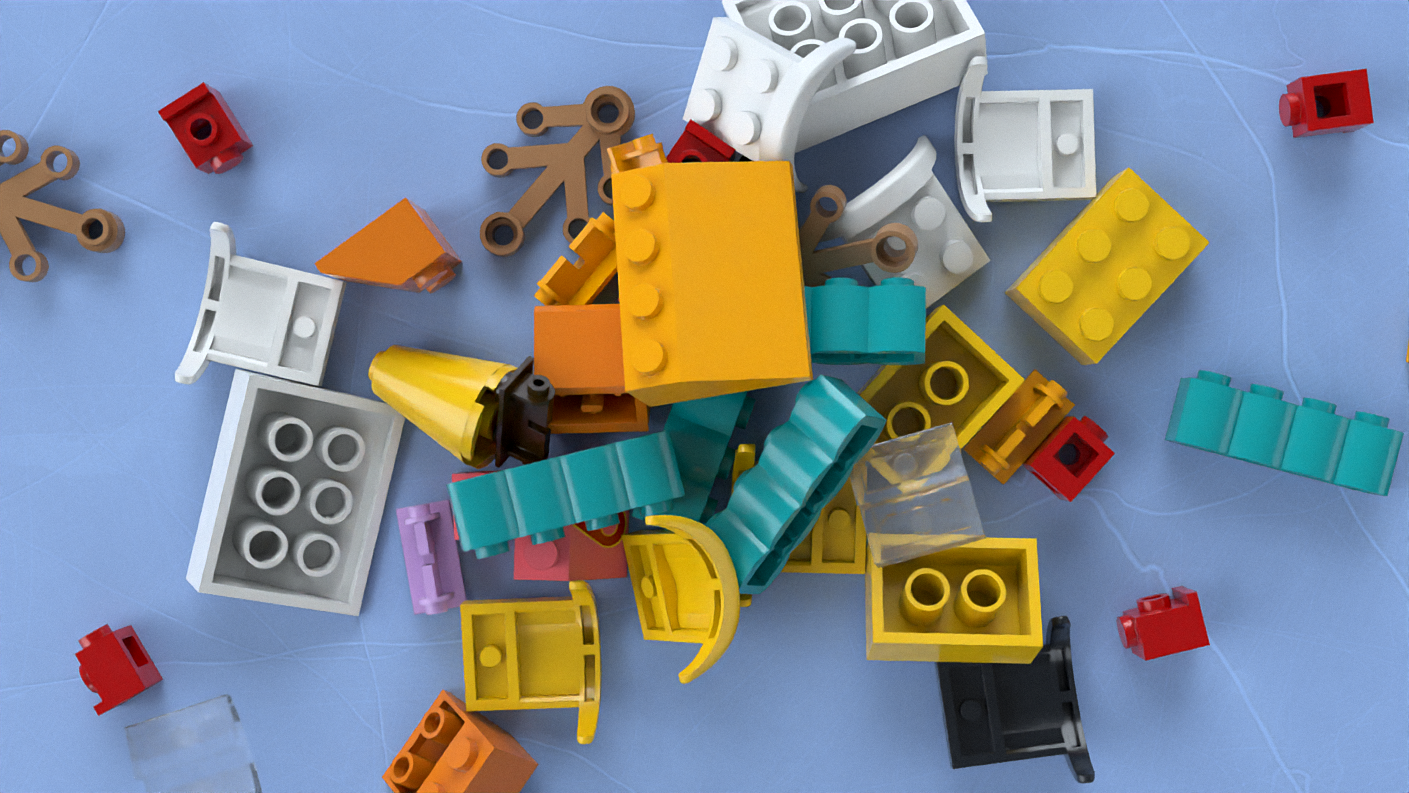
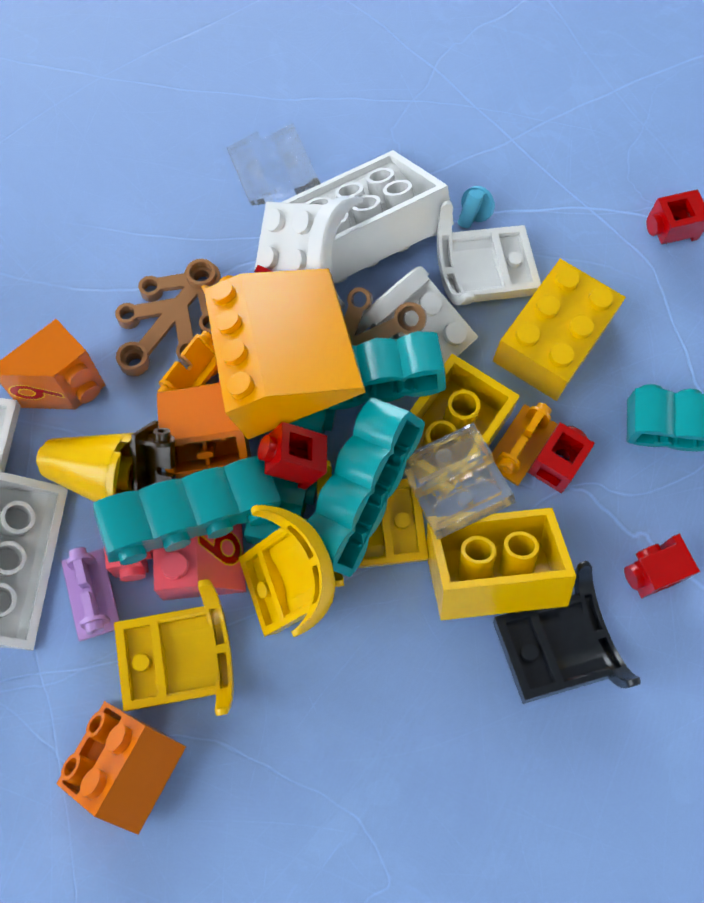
camera: 10 degrees left, 20 degrees down
(708, 436) = (294, 454): none -> red brick
(1029, 40) = (476, 206): none -> medium azure plate

